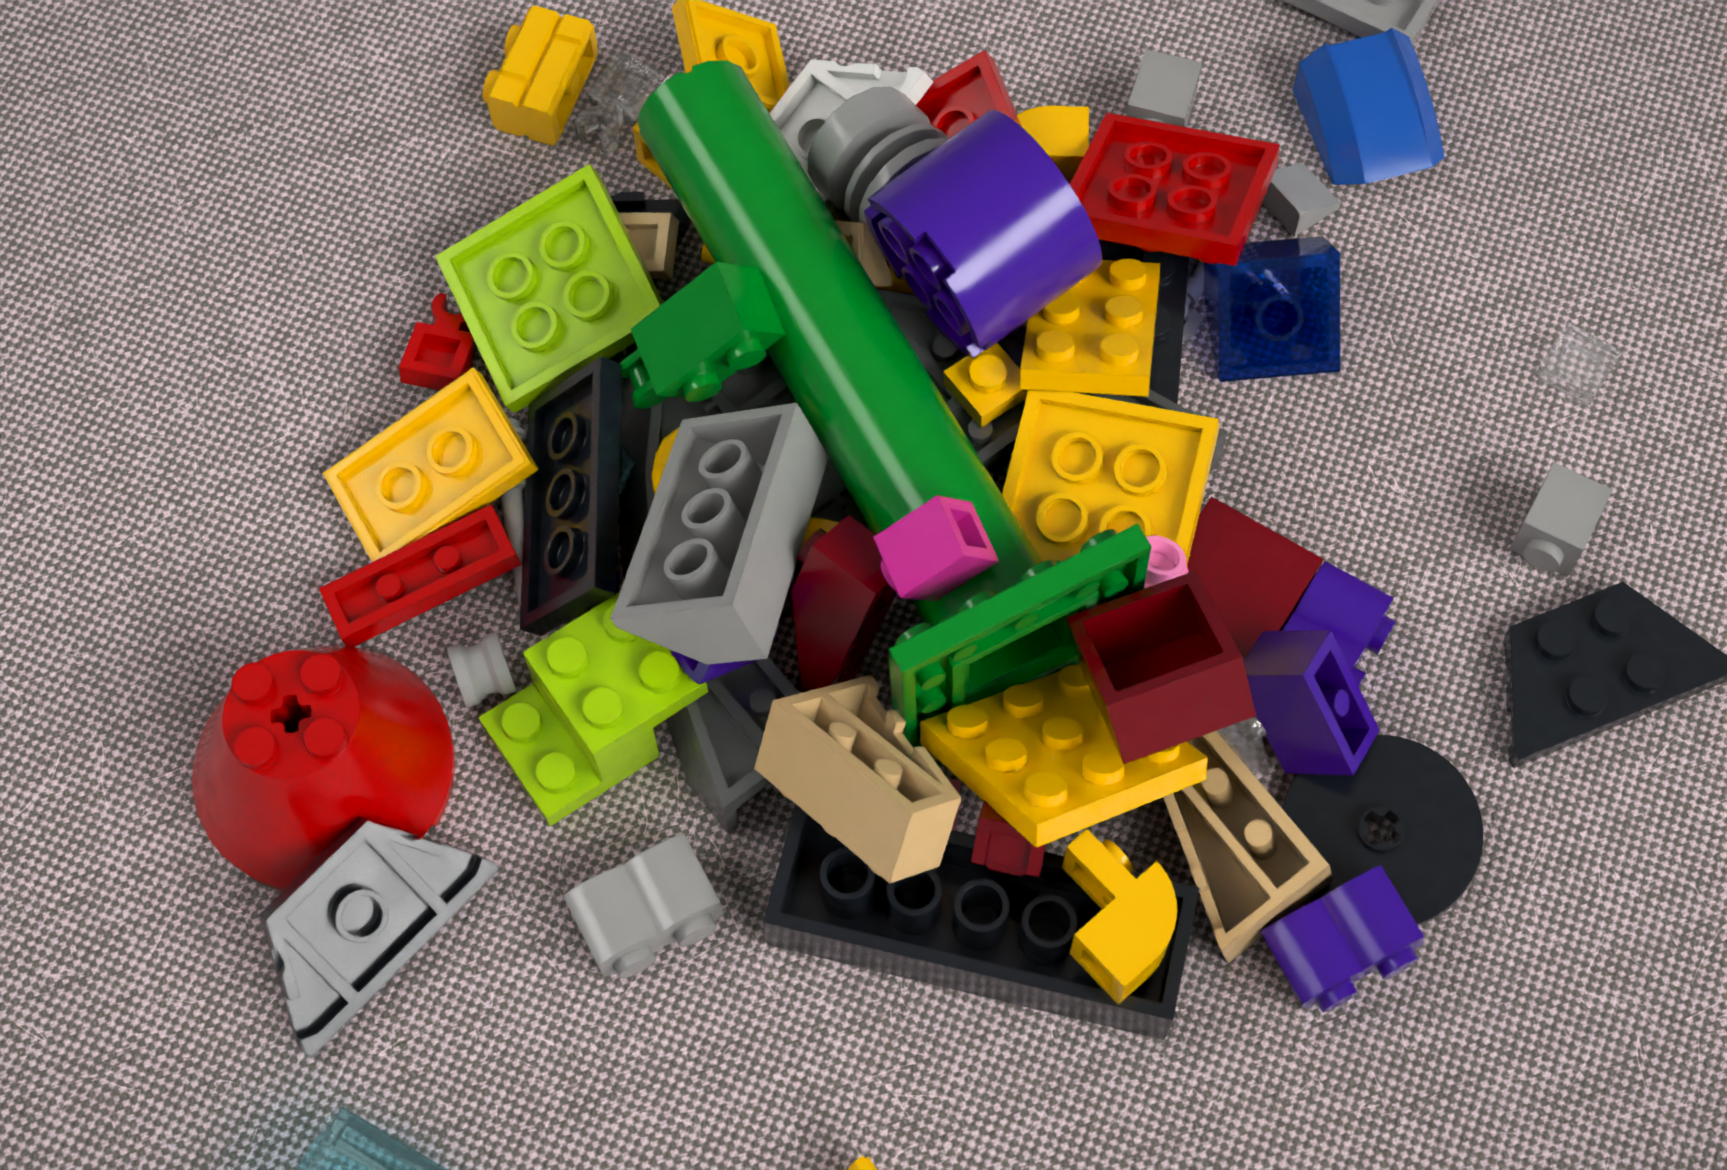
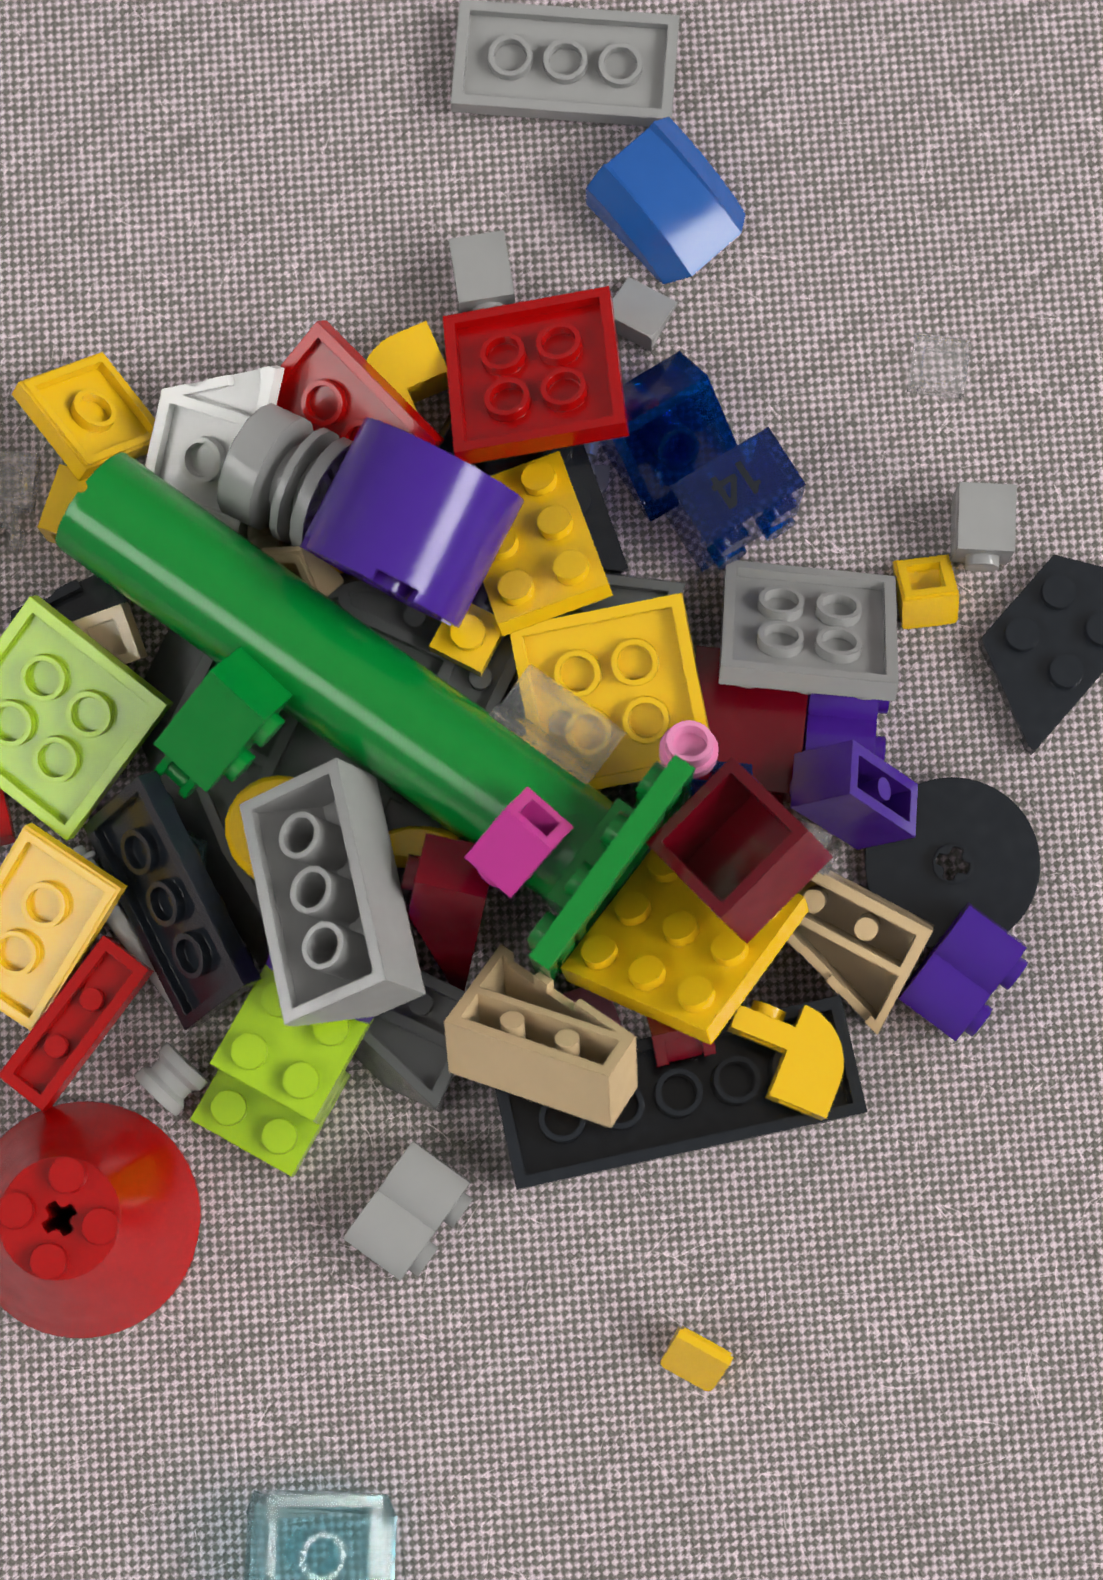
camera: 25 degrees left, 15 degrees up
(361, 919) = (193, 1333): wing -> none
(1037, 491) = (558, 724): none -> clear panel
(1314, 382) = (735, 501): none -> clear blue brick
(1331, 530) = (809, 630): none -> light grey plate
(1471, 564) = (926, 592): none -> yellow slope

